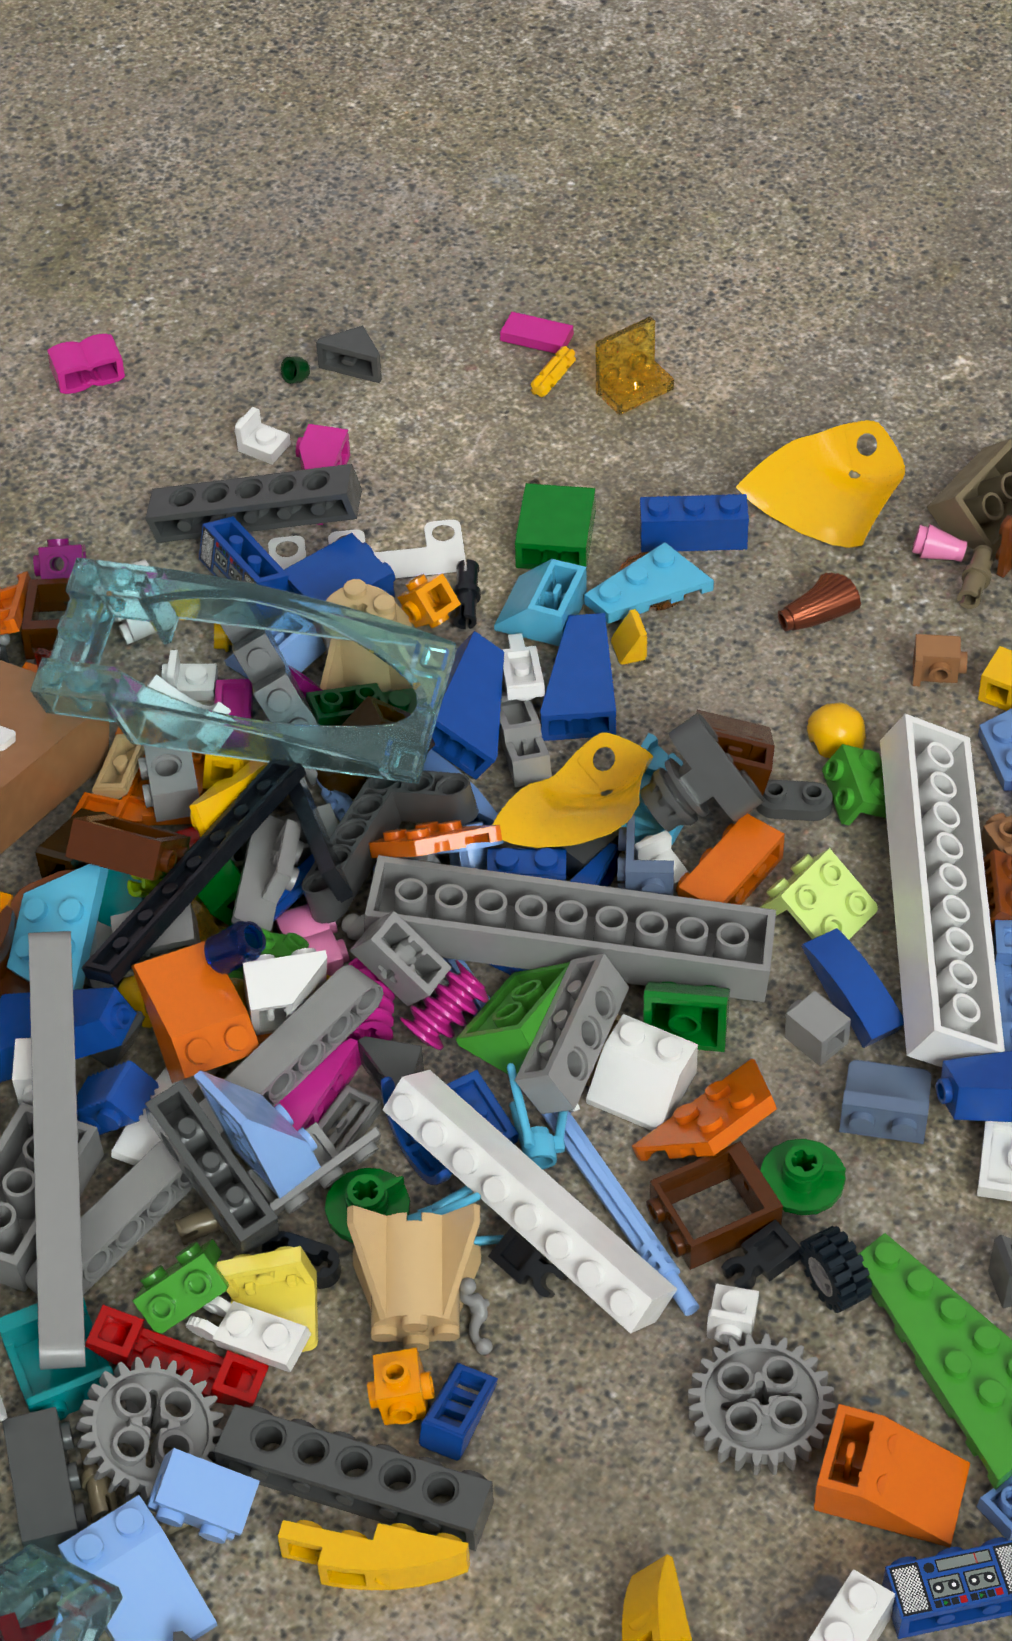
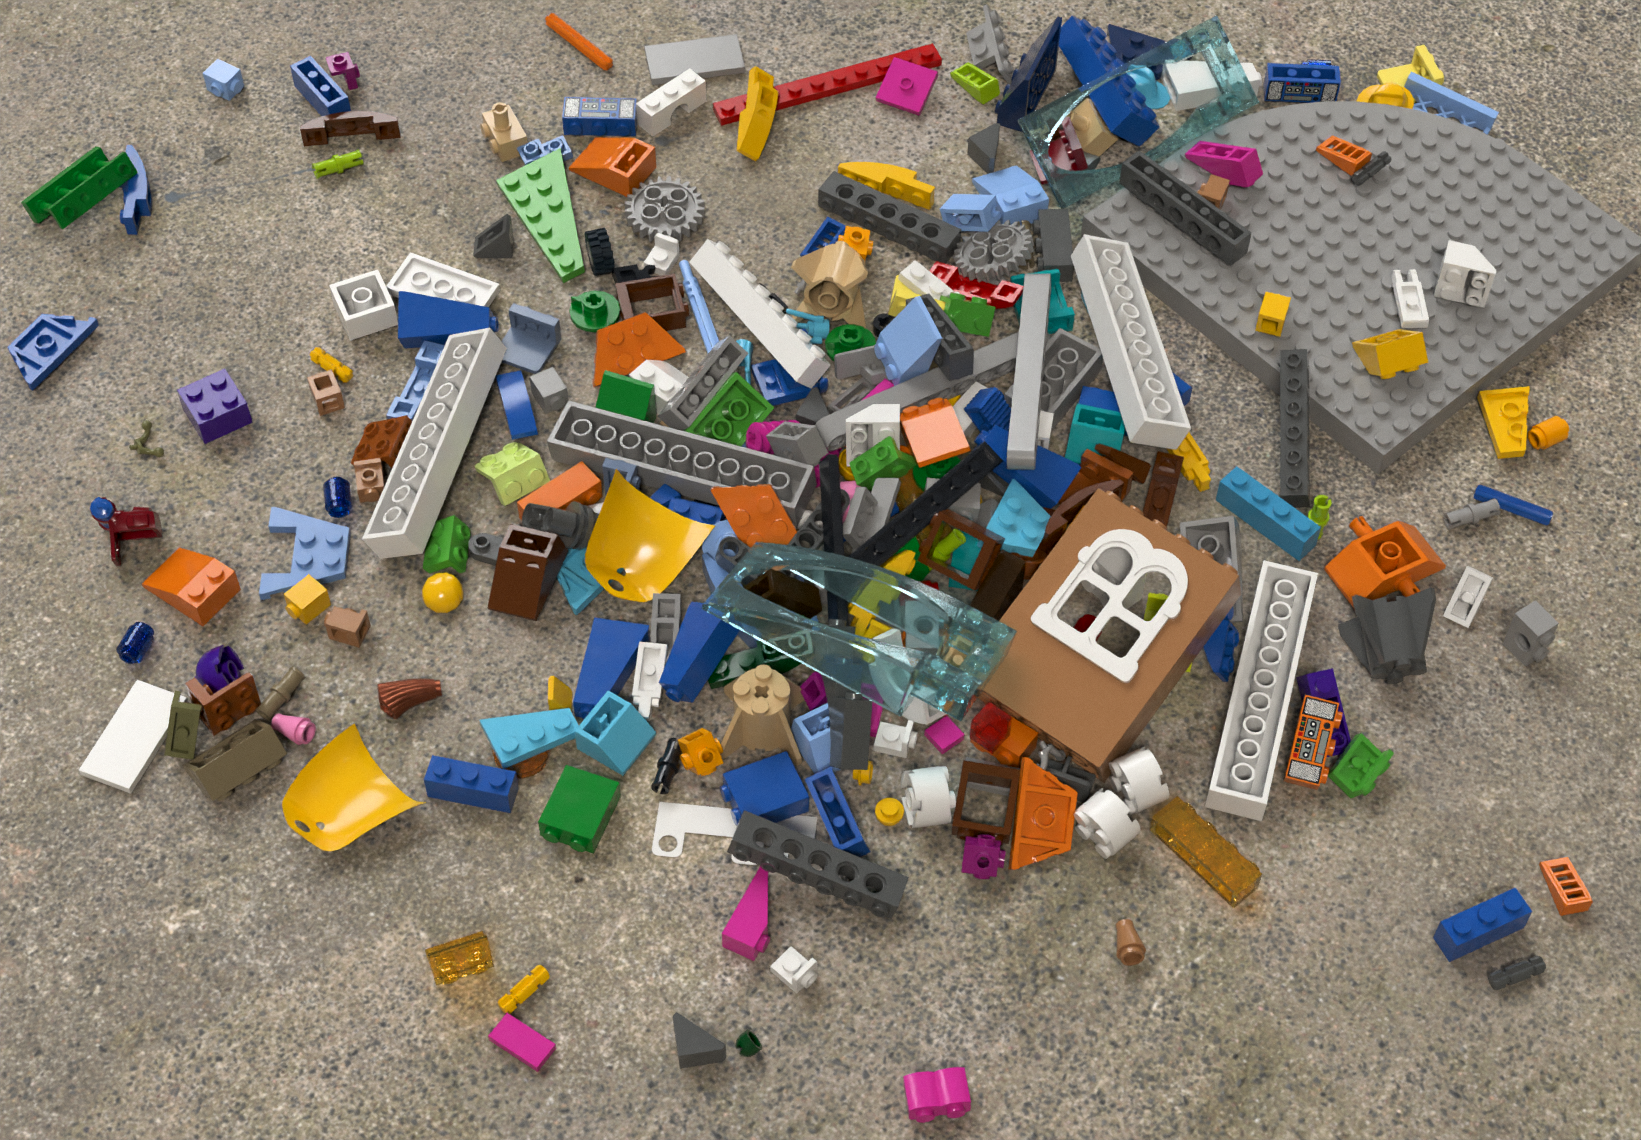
camera: 170 degrees left, 5 degrees up
(234, 946) = (903, 433): clear blue brick -> none

